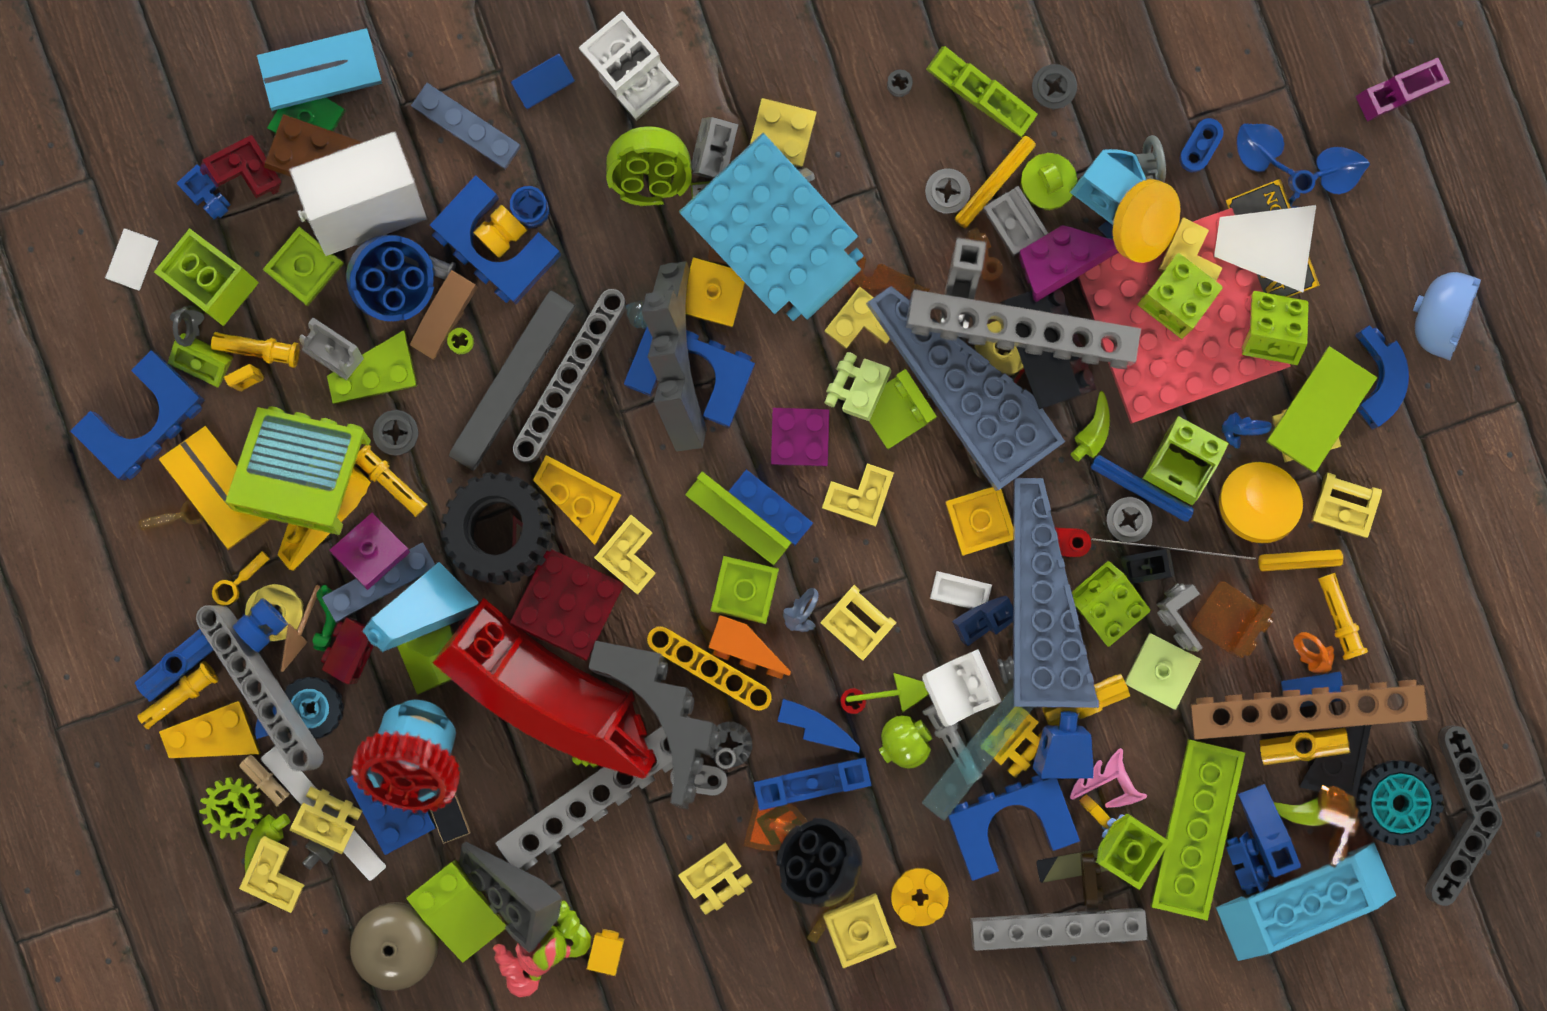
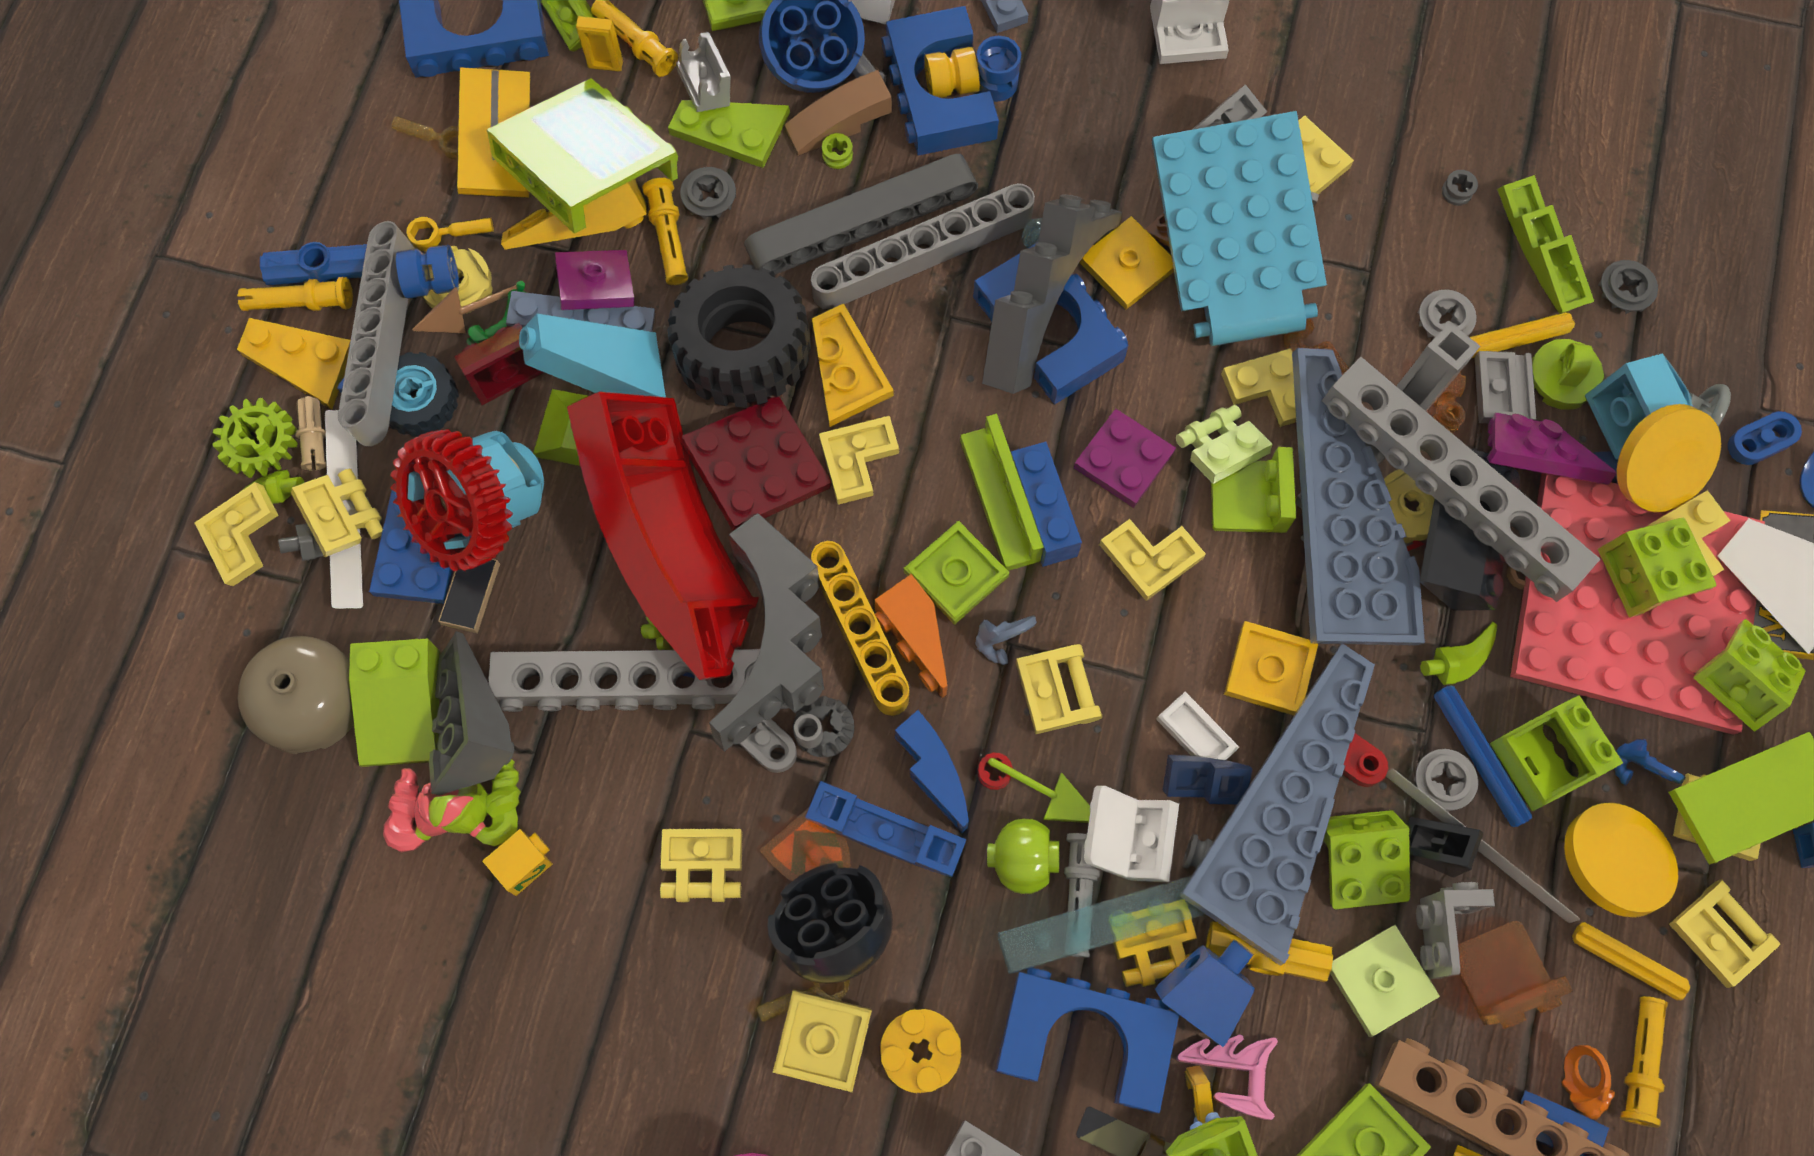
camera: 35 degrees right, 15 degrees down
(653, 153) = (1128, 86): lime cylinder -> none

